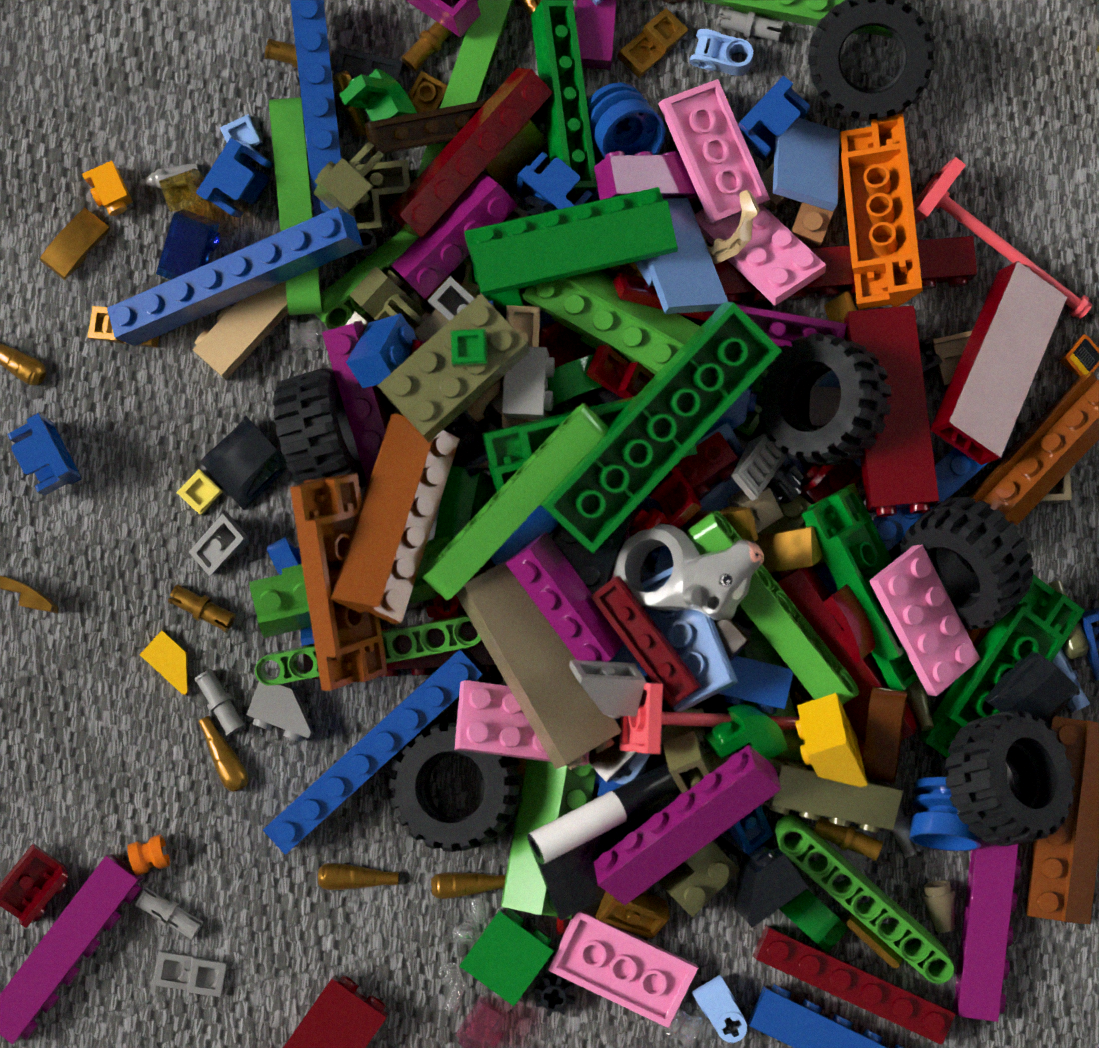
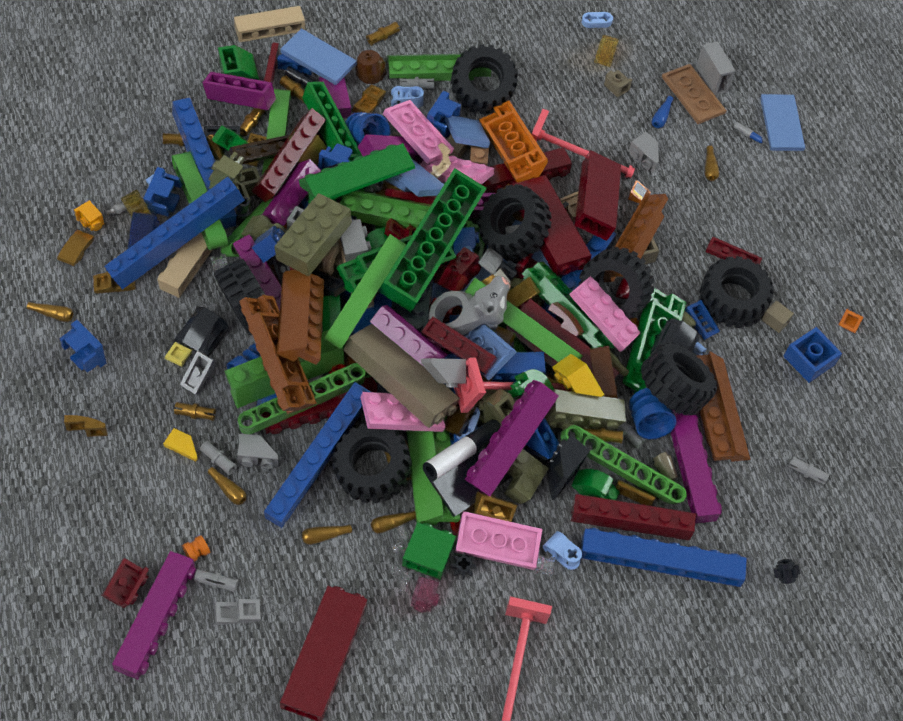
camera: 25 degrees left, 25 degrees down
(469, 347) = (320, 214): green tile -> none

